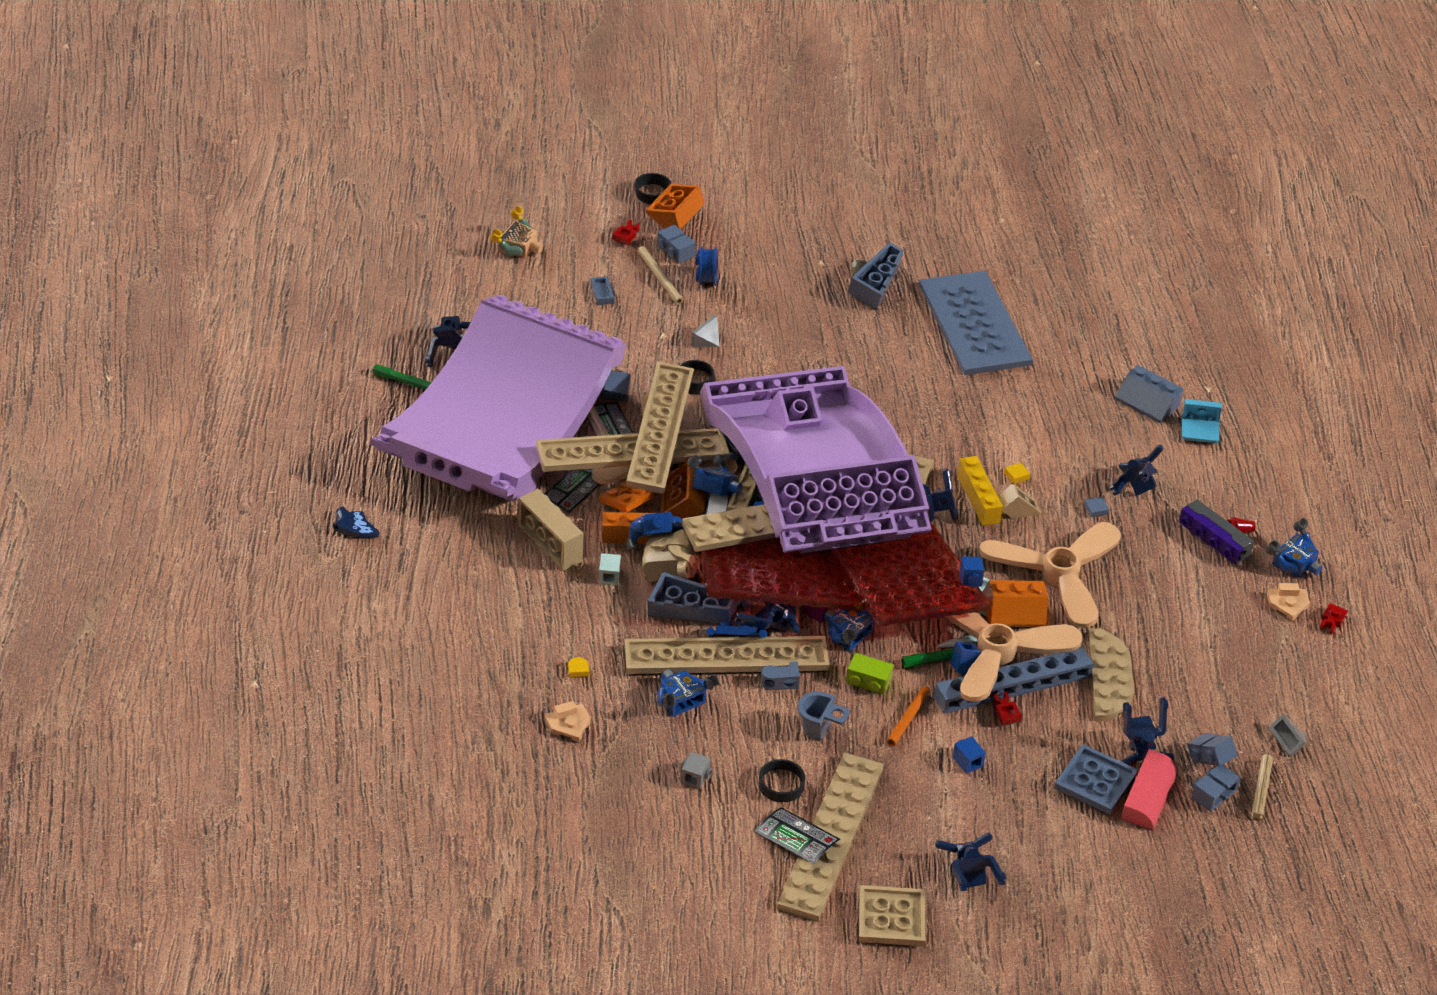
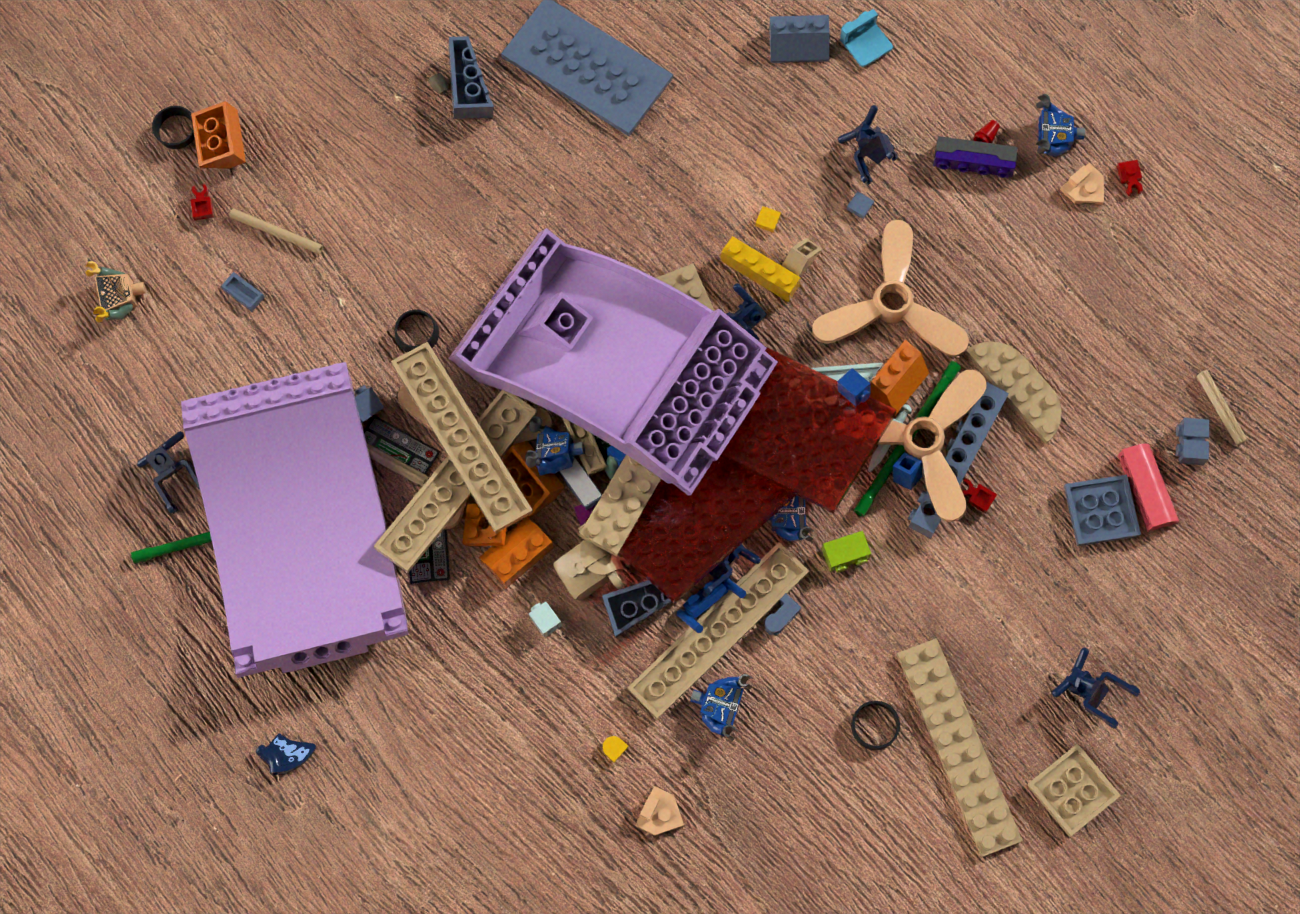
camera: 35 degrees left, 30 degrees up
(550, 529) = (462, 622): tan brick -> none
(650, 525) = (554, 551): blue torso -> none
(676, 244) = (264, 185): sand blue piece -> none
(695, 770) = (804, 776): light grey brick -> none
(706, 334) = (383, 272): light grey slope -> none
(708, 265) = (314, 193): blue wheel -> none
(796, 834) = (938, 774): sticker -> none
(817, 711) = (851, 636): sand blue container -> none
(908, 716) = (910, 568): orange piece -> none
(969, 754) = (991, 570): blue brick -> none
(1143, 733) = (1107, 437): dark blue piece -> none
(1212, 749) = (1172, 410): sand blue piece -> none
(1288, 734) = (1200, 335): light grey slope -> none

